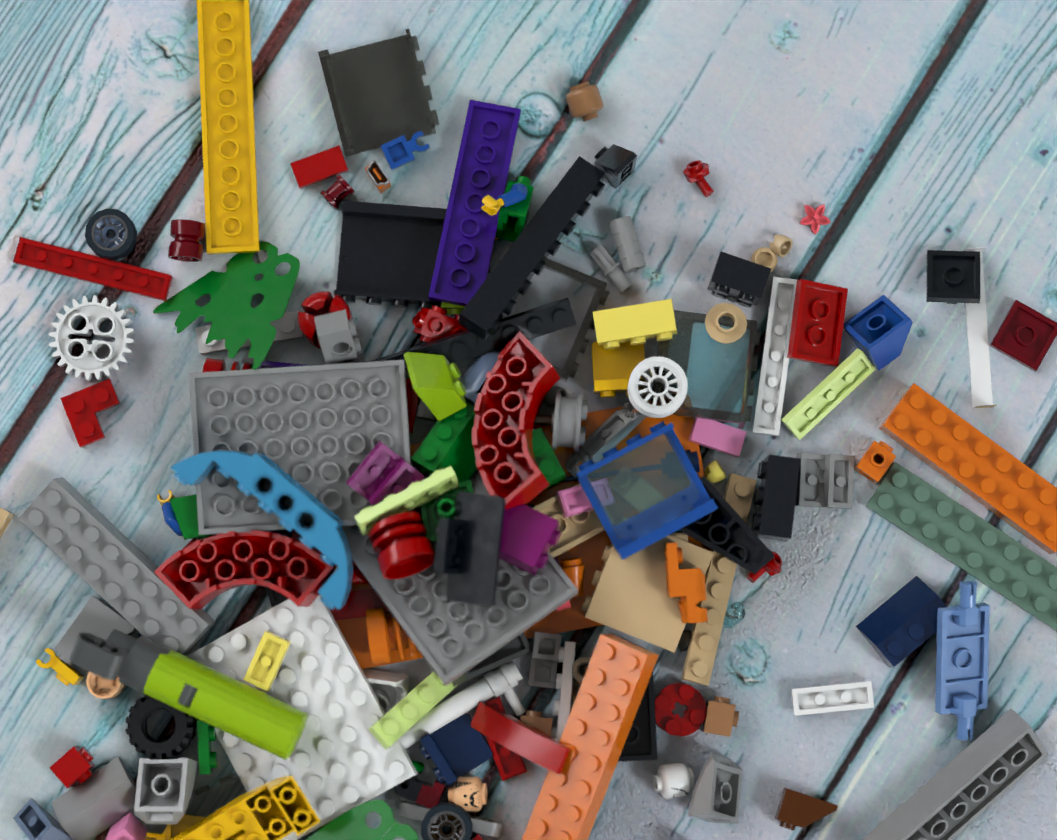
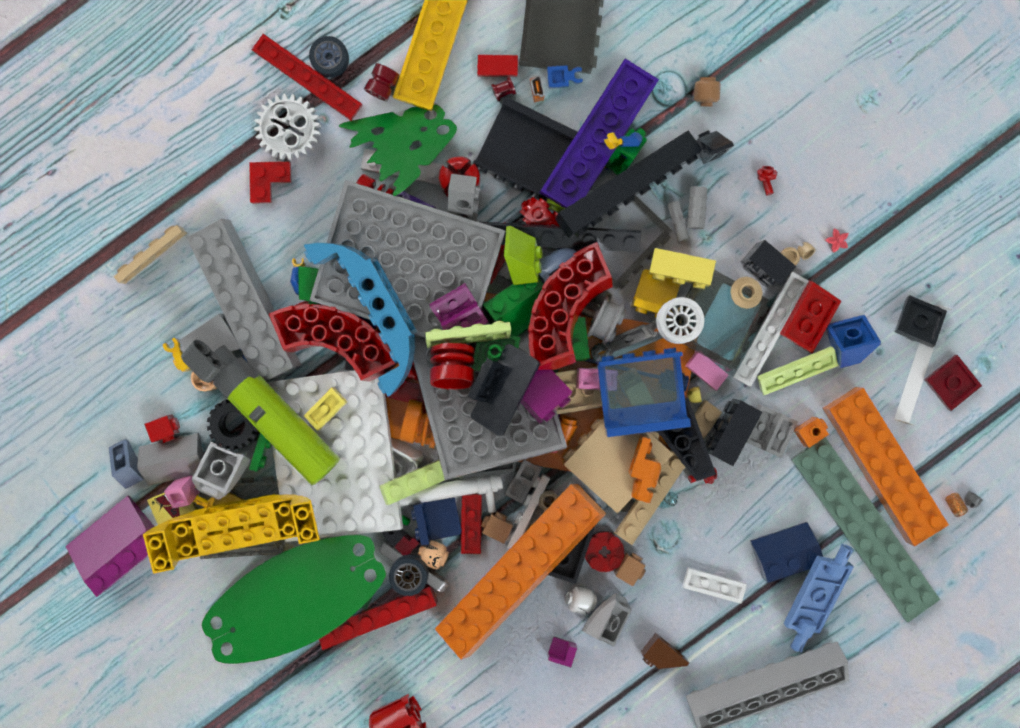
camera: 20 degrees right, 5 degrees up
(520, 738) = (484, 532): red slope -> none

